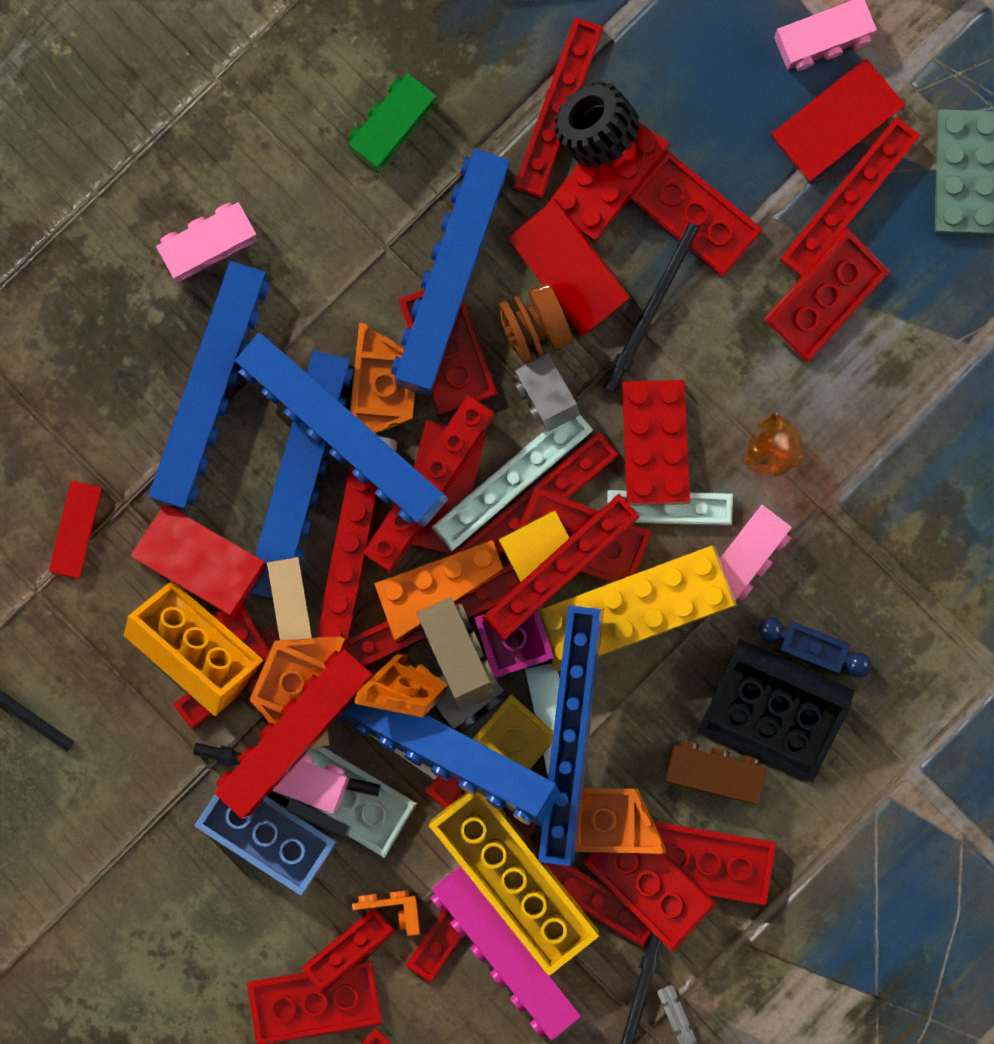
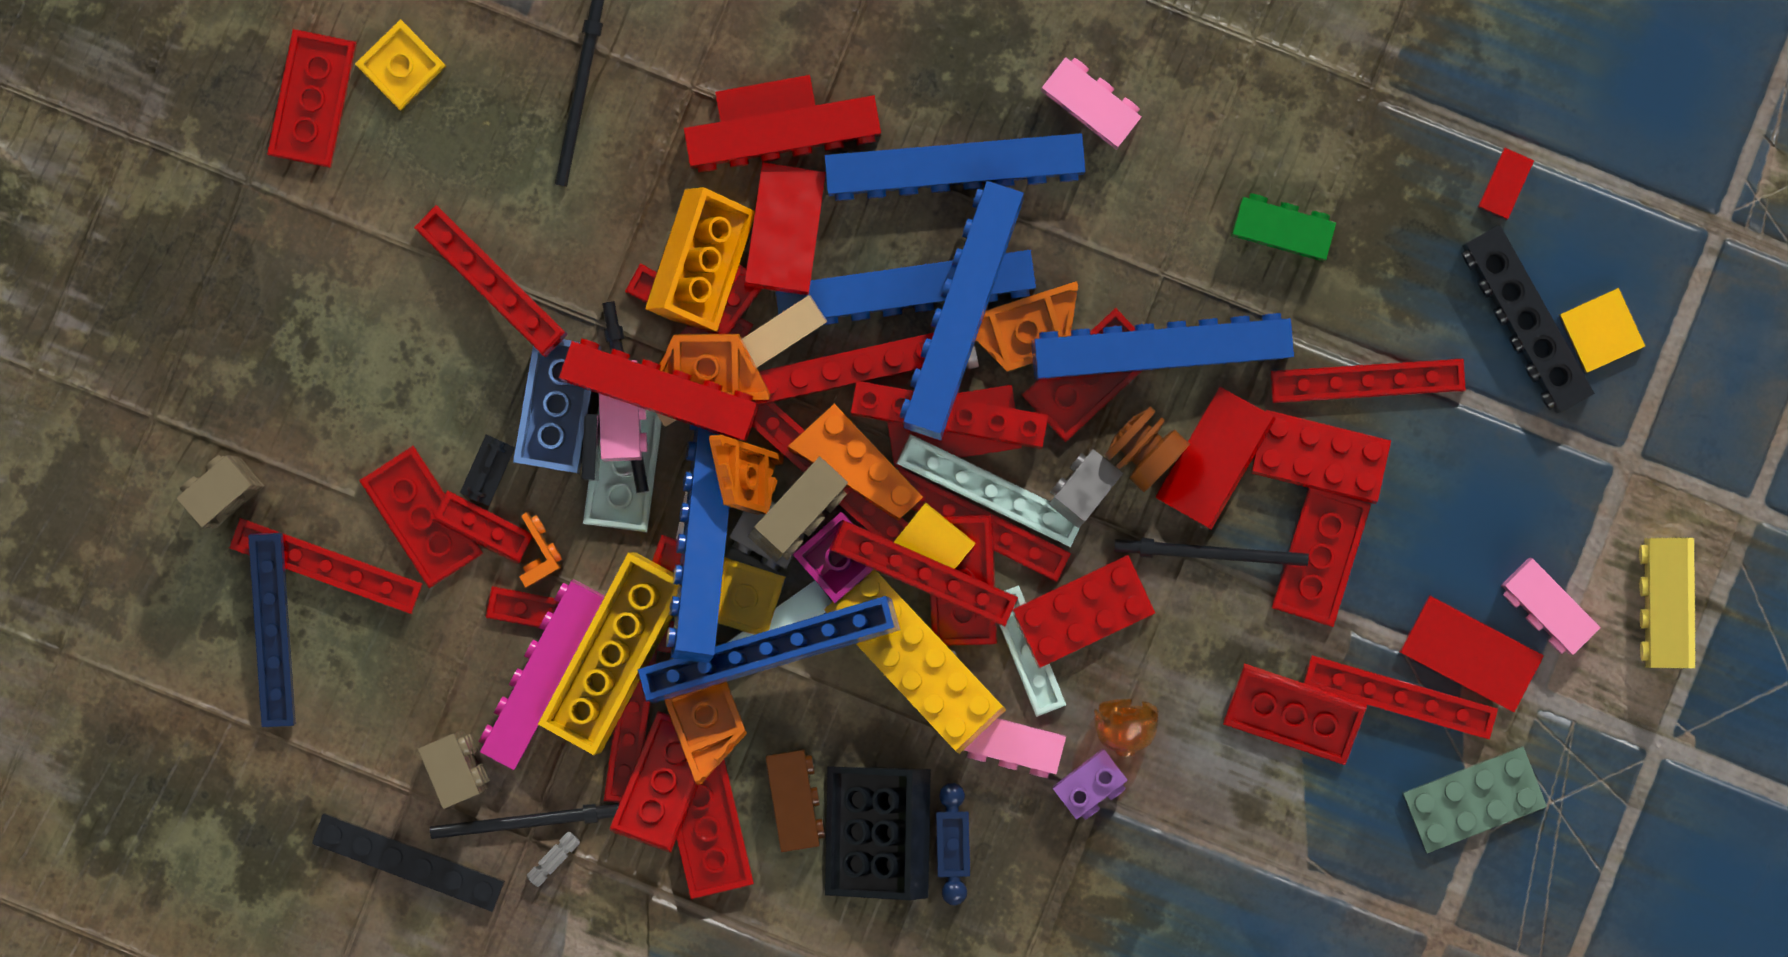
camera: 70 degrees right, 5 degrees up
(112, 525) = (782, 132): none -> red brick
(128, 845) = (491, 281): none -> red tile
(298, 924) = (487, 470): none -> black hinge
(596, 124) = (1358, 443): black tyre -> none
(813, 502) = (1090, 784): none -> medium lavender brick

